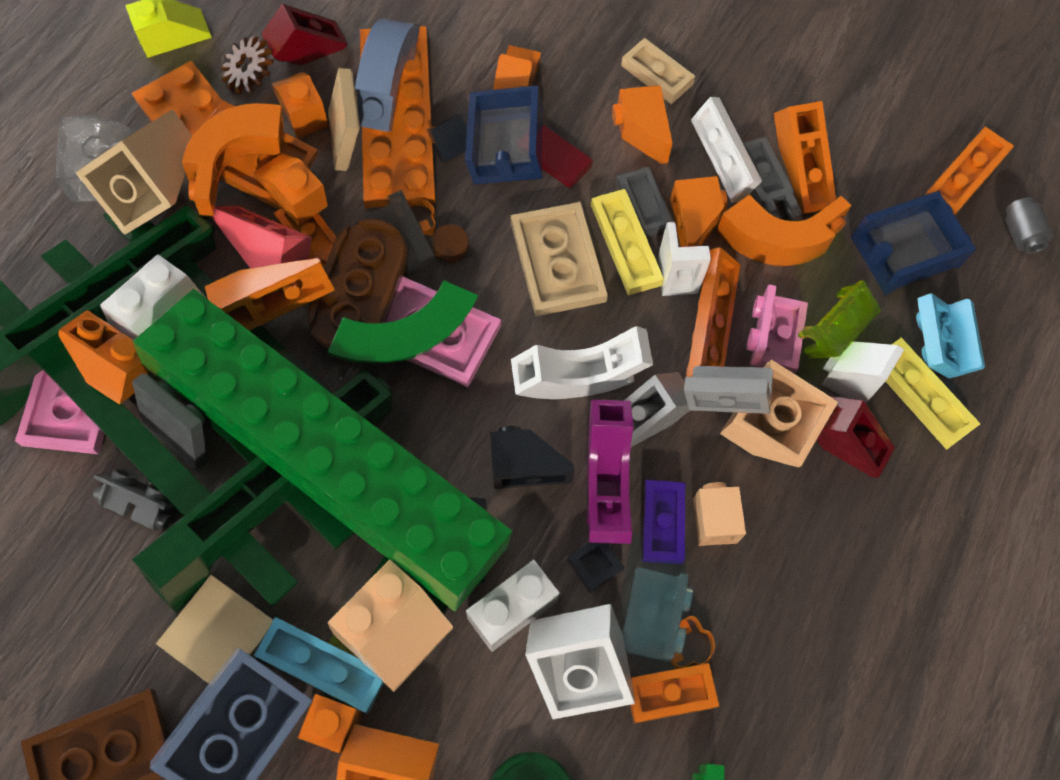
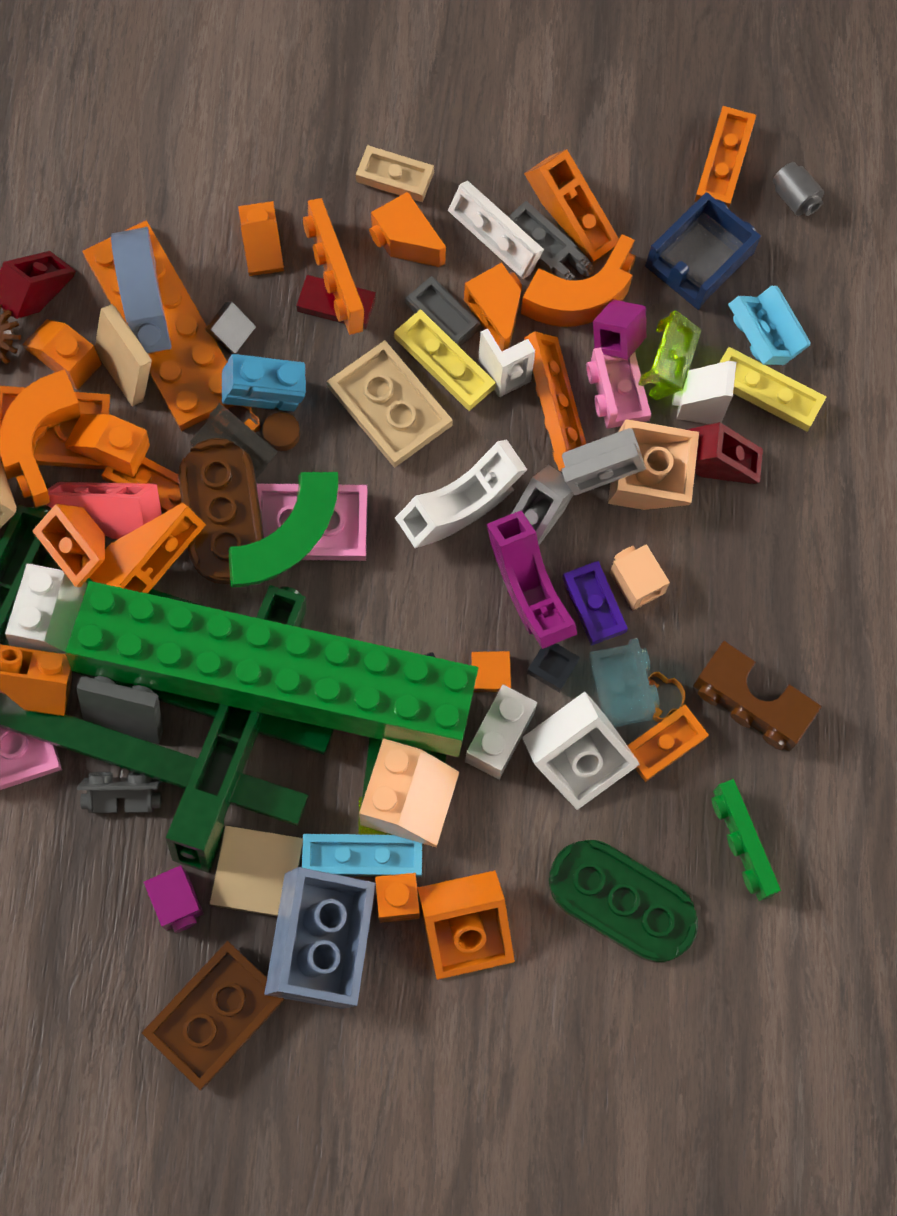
camera: 25 degrees left, 5 degrees up
(124, 623) = (174, 899): none -> magenta brick
(208, 251) = (72, 541): none -> orange slope
(452, 192) = (263, 382): none -> dark azure brick
(505, 135) = (283, 302): dark blue window -> none
(526, 460) = (451, 602): black slope -> none
(533, 542) = (492, 670): none -> orange tile
(563, 130) = (337, 274): none -> orange plate
(801, 726) = (779, 720): none -> reddish brown arch
(802, 278) = (620, 328): none -> magenta brick

